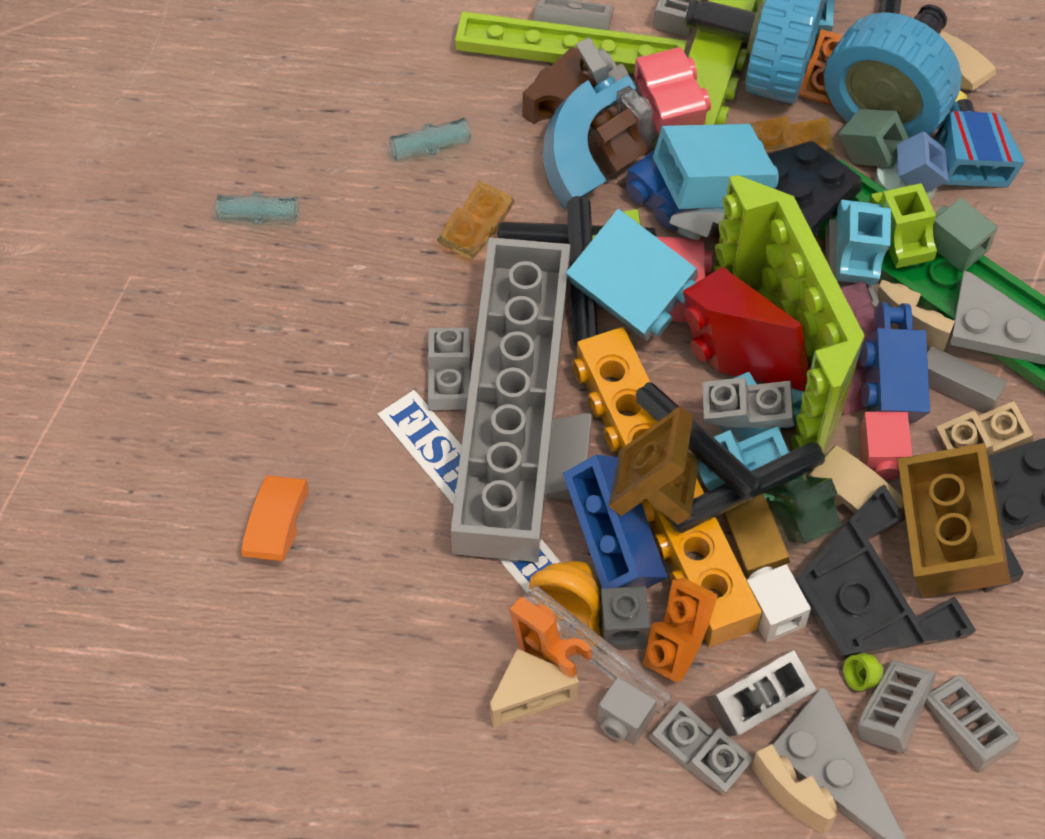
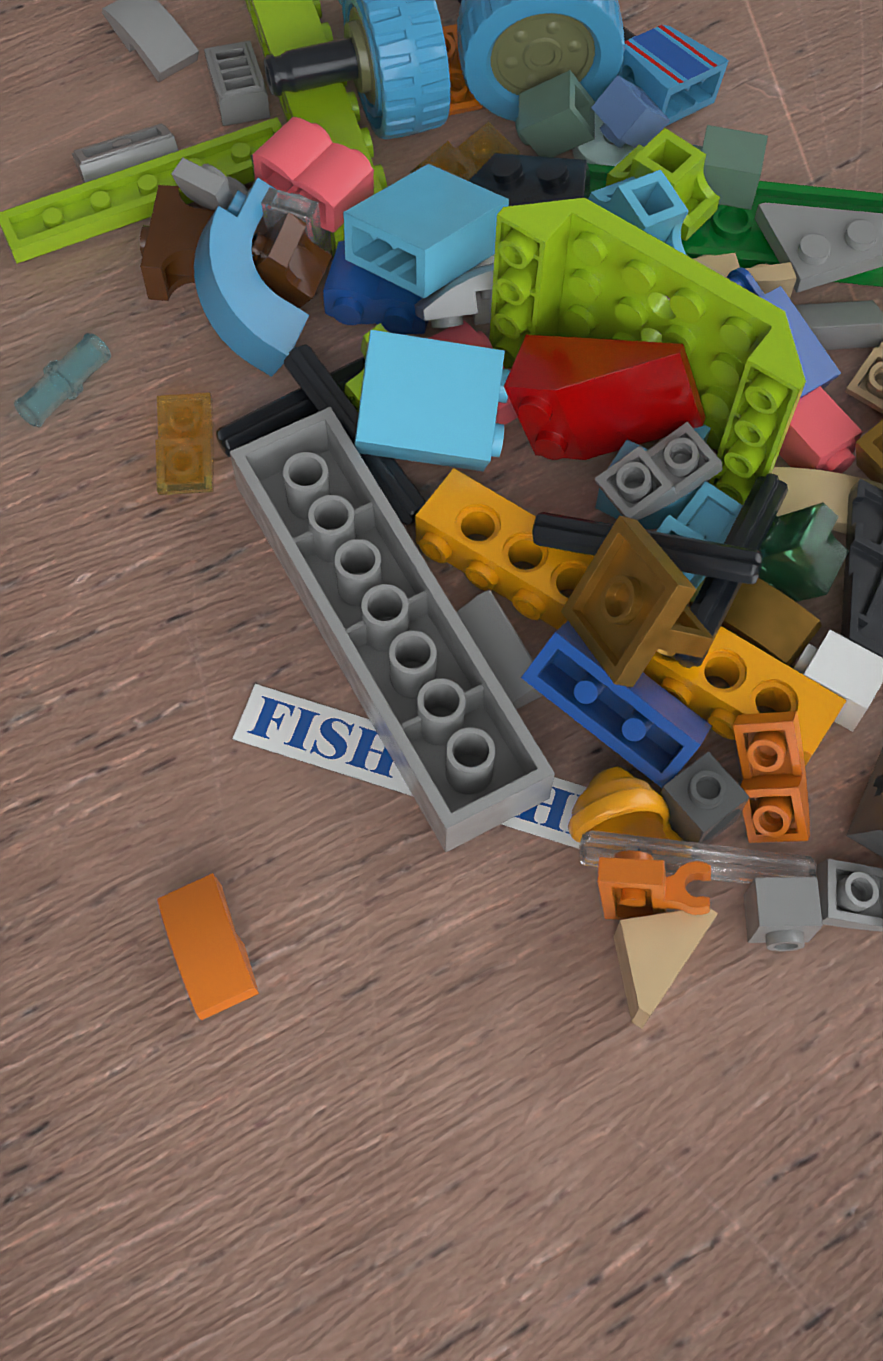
camera: 35 degrees left, 5 degrees up
(448, 368) = (281, 635): light grey slope -> none

